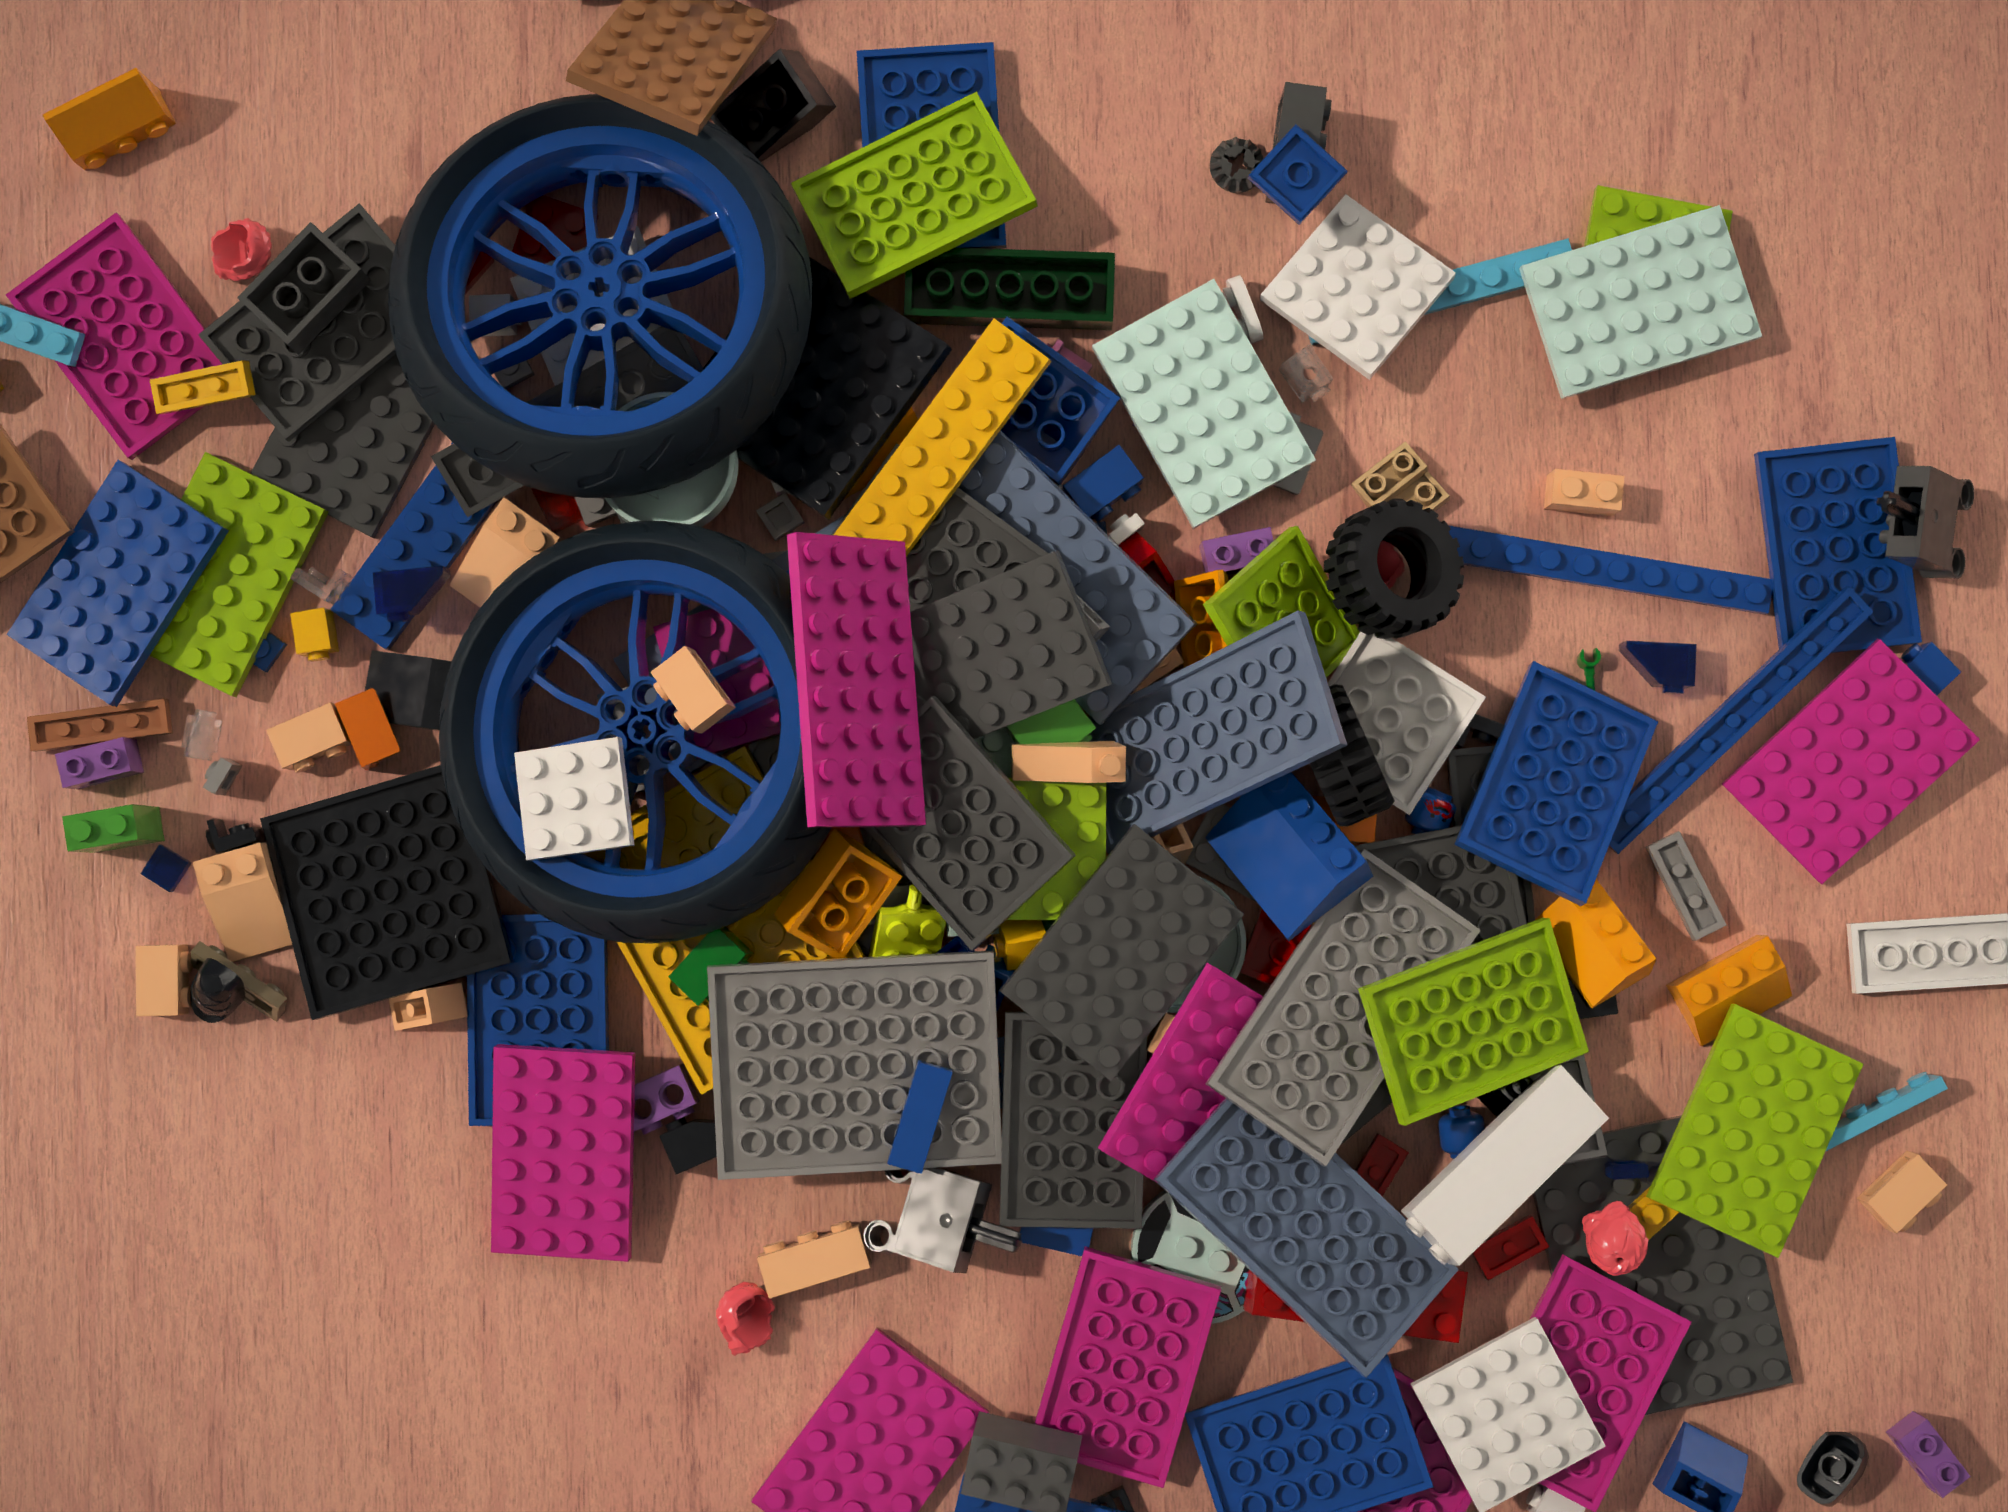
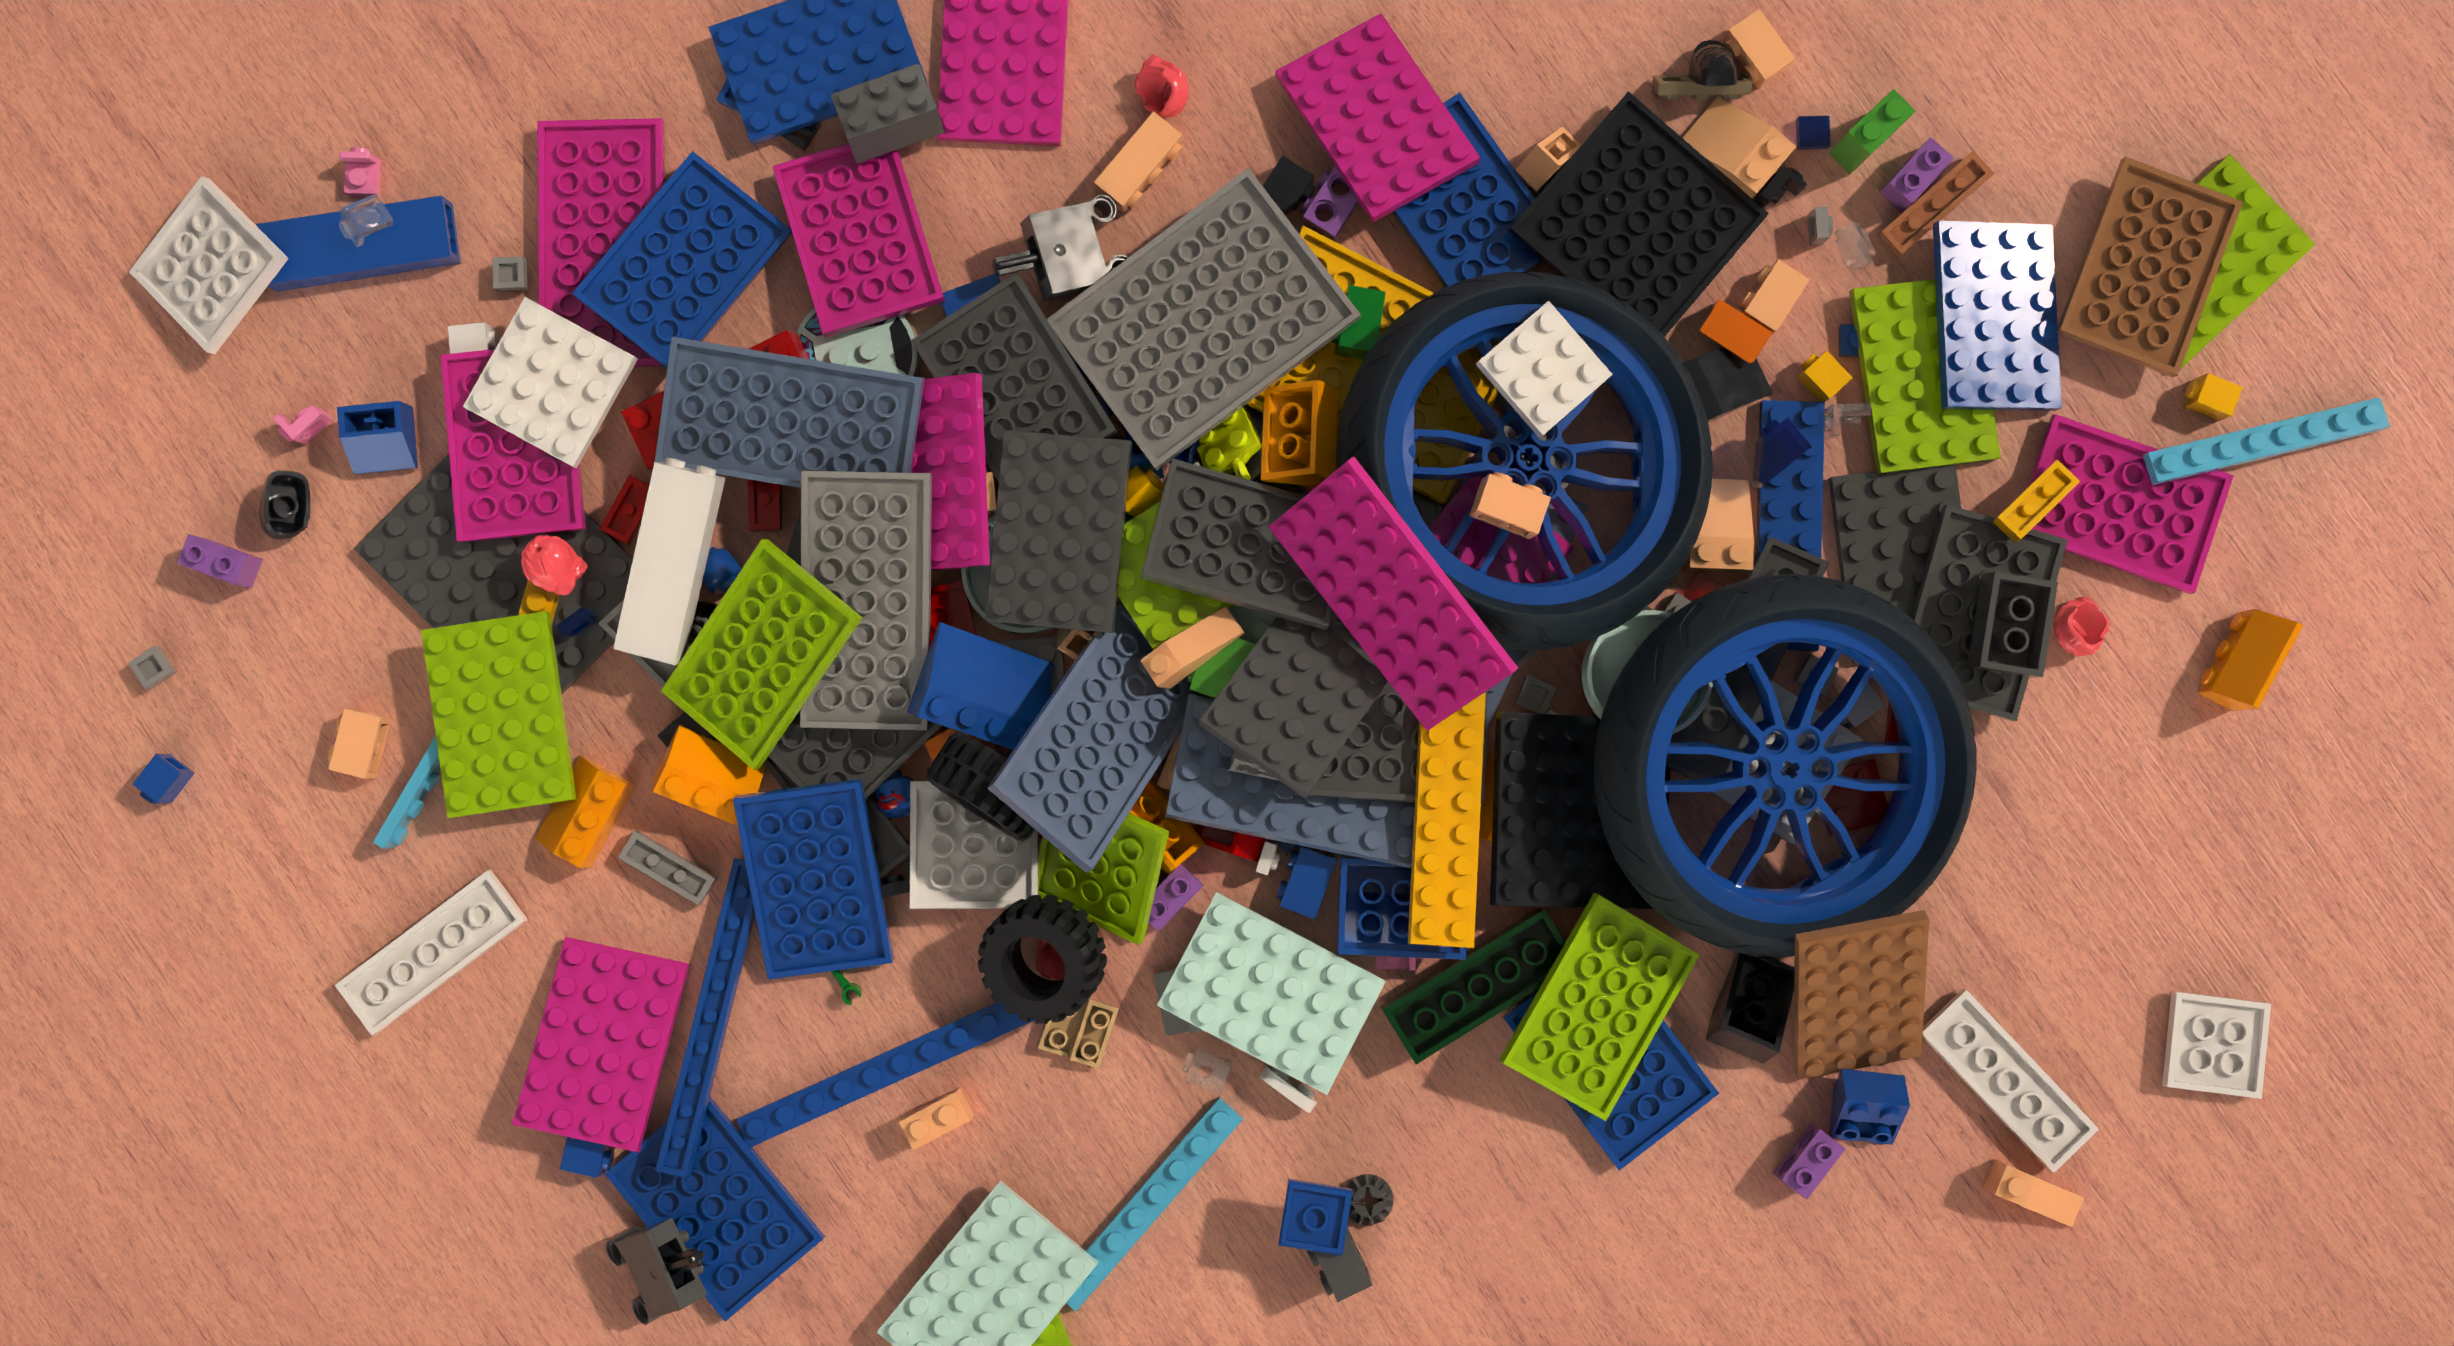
camera: 145 degrees right, 0 degrees up
(919, 1116) = (1129, 311): blue tile -> none
(1357, 286) = (1213, 1164): white plate -> none
(1663, 664) = (791, 1025): clear blue slope -> none

